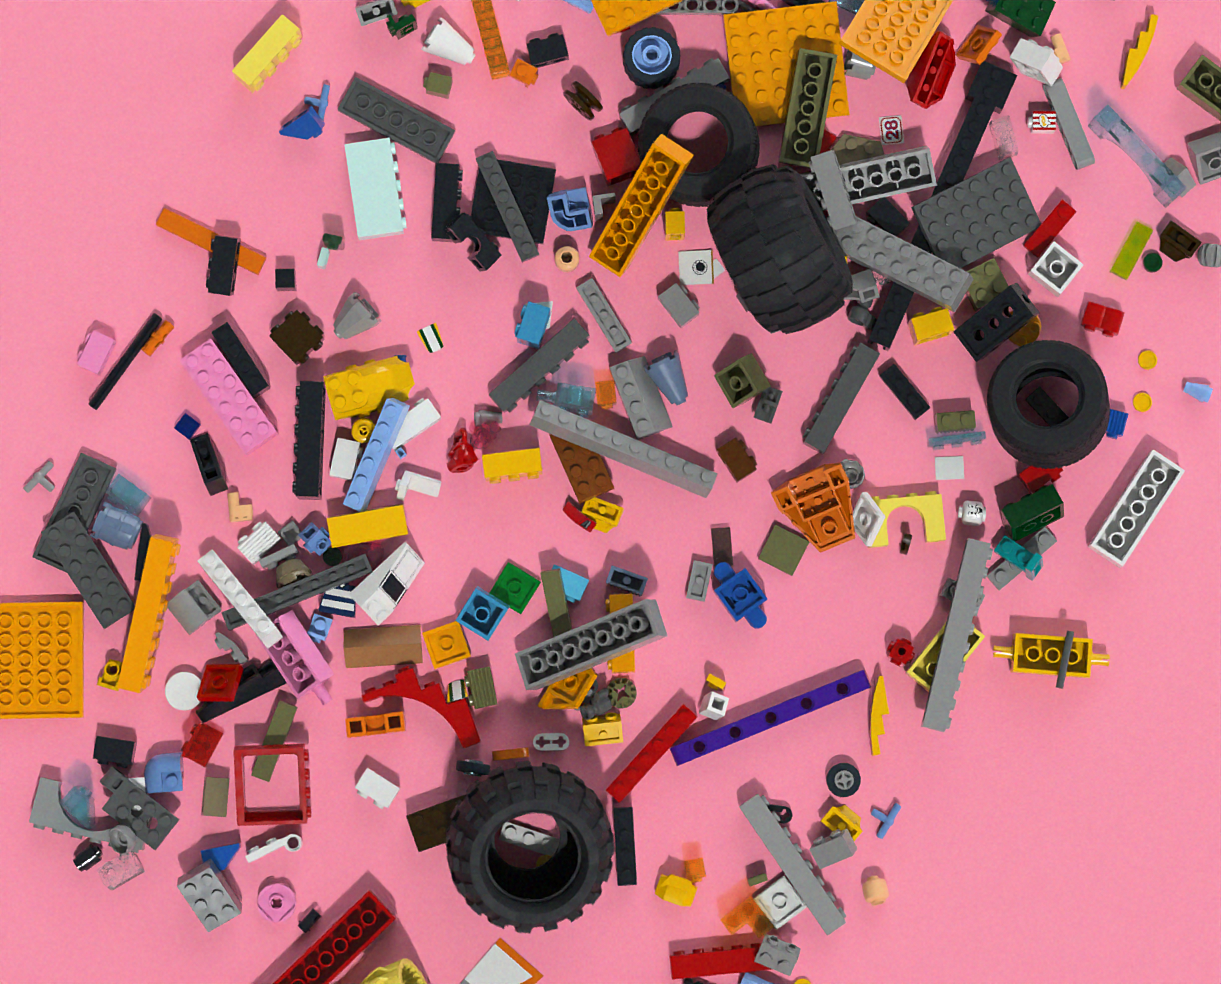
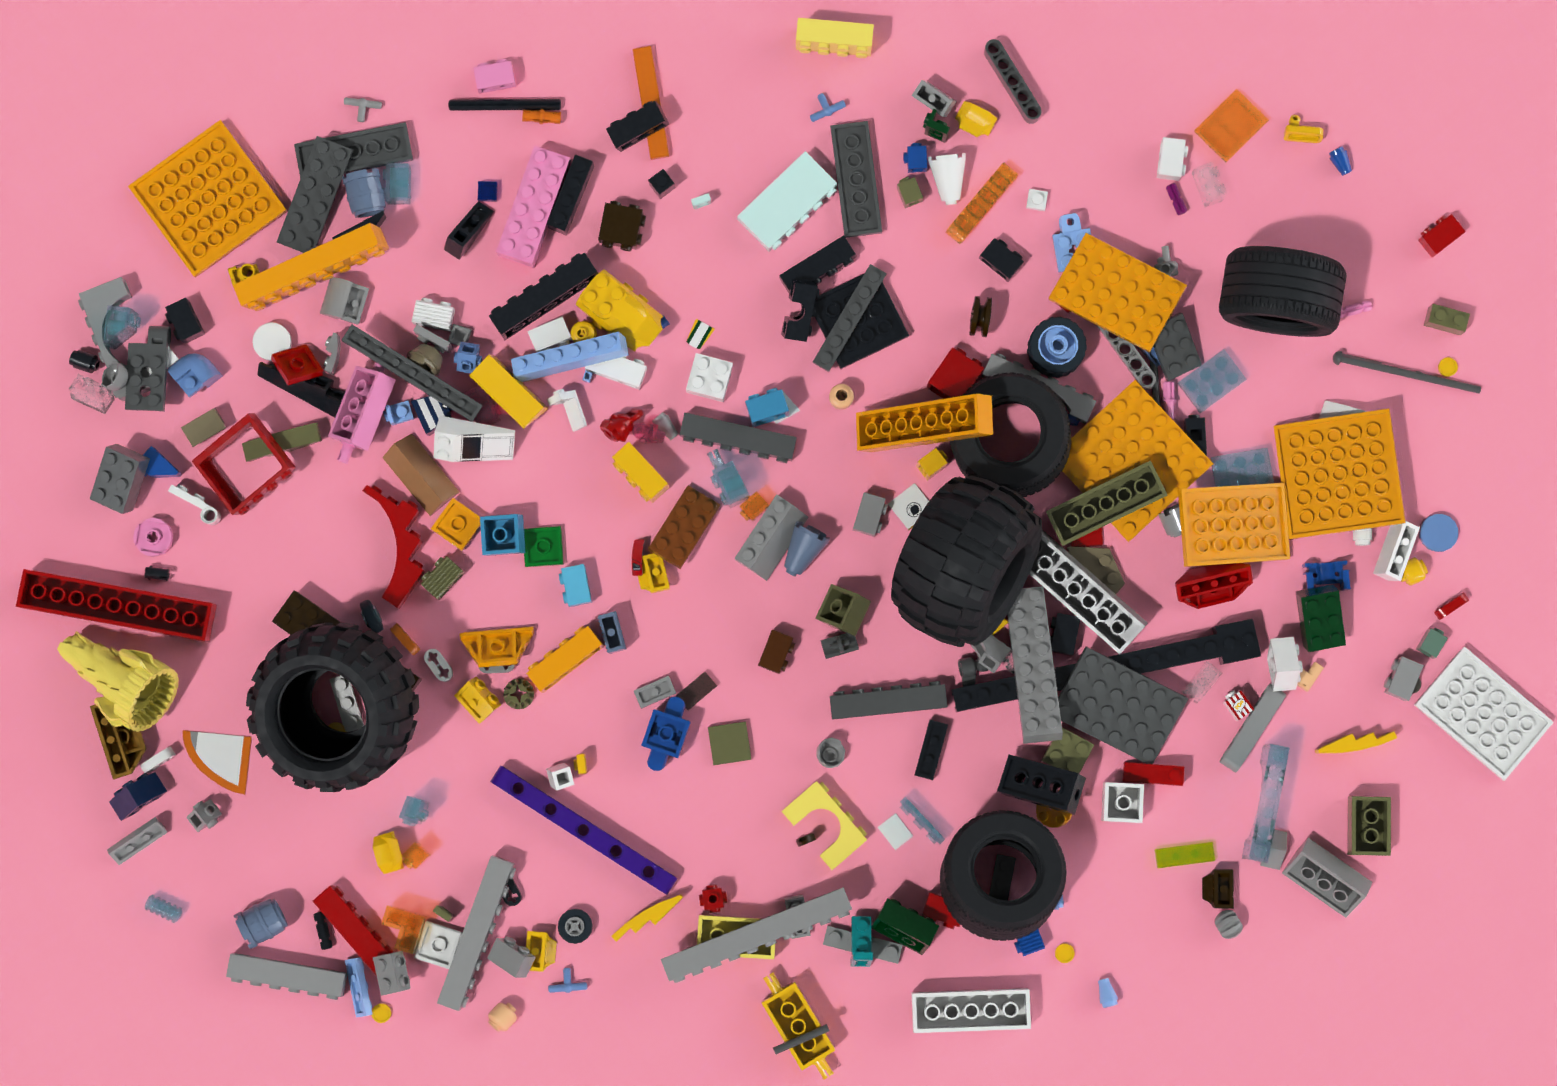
camera: 60 degrees right, 0 degrees up
(202, 743) = (238, 385): clear red bracket -> none
(238, 512) = (446, 281): light nougat piece -> none
(240, 598) = (373, 331): white arch -> none
(304, 125) = (798, 108): blue slope -> none
(332, 556) = (464, 382): clear green piece -> none
(333, 242) = (718, 199): clear green plate -> none
(355, 317) = (671, 261): light grey cone -> none
(375, 724) = (351, 513): orange arch -> none
(377, 788) = (301, 551): white brick -> none
(414, 60) = (916, 158): none -> blue brick
(456, 690) = (425, 559): sticker -> none
(474, 354) = (709, 377): none -> white brick
(524, 73) = (969, 253): orange bracket -> none
(556, 601) = (550, 591): olive tile -> none
(571, 209) = (884, 370): medium blue brick -> none
(591, 644) = (536, 640): light grey brick -> none
(598, 705) = (494, 682): dark grey piece -> none
(599, 200) = (903, 389): light grey panel -> none
(603, 315) = (817, 460): light grey plate -> none
(623, 449) = (717, 553): light grey brick -> none
(625, 846) = (394, 785): black brick -> none
(651, 753) = (485, 753): red brick -> none
(658, 844) = (414, 811): none -> clear light blue brick
(819, 505) = (785, 745): orange wedge -> none
(834, 190) = (1052, 572): light grey brick -> none
(867, 519) = (801, 792): white tile -> none
(891, 130) = (1141, 585): sticker -> none
(930, 326) = (1000, 732): yellow brick -> none
(955, 421) = (936, 808): olive brick -> none
(972, 513) = (870, 876): white head -> none
(978, 44) = (1263, 606): orange plate -> none
(1102, 319) = (1109, 871): red brick -> none
(1147, 360) = (1103, 932): yellow piece -> none
(1152, 262) = (1187, 879): dark green tile -> none

